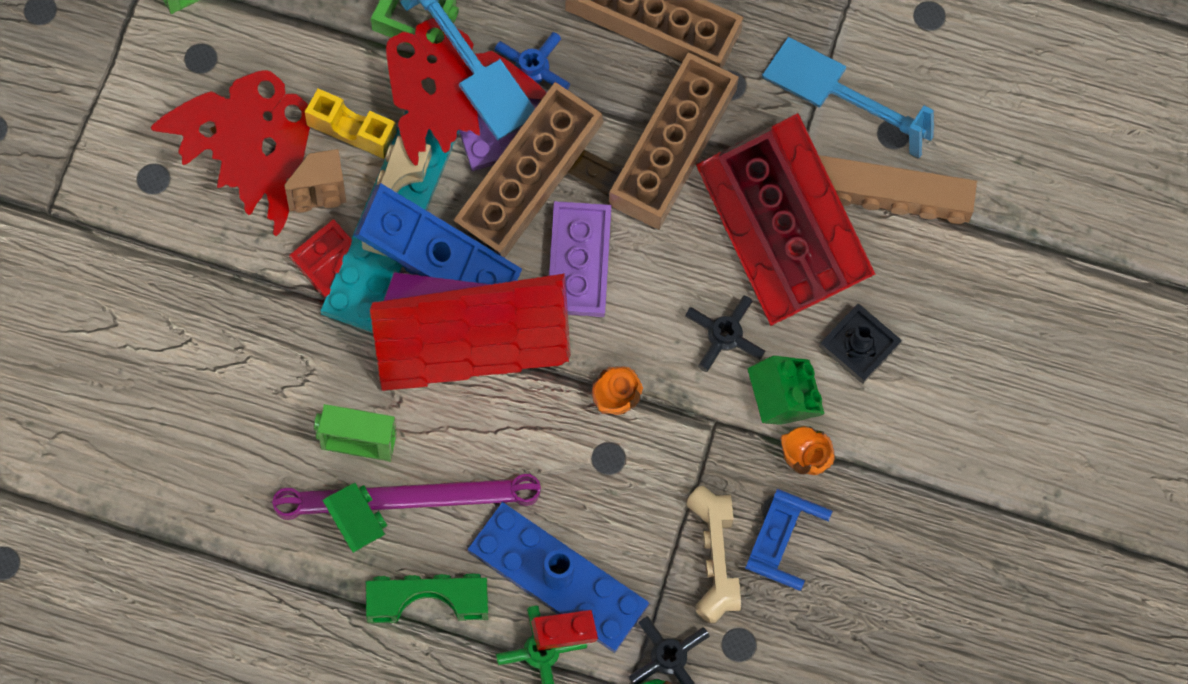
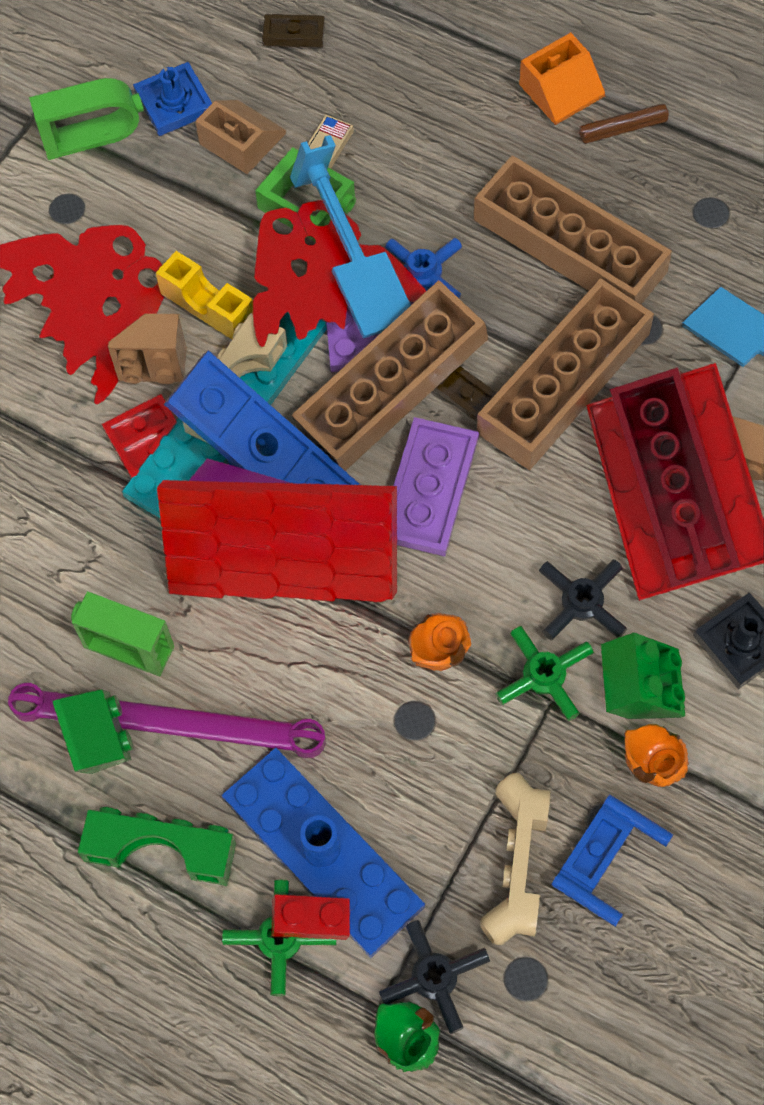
camera: 20 degrees right, 5 degrees down
(706, 390) = (540, 683): none -> green bar

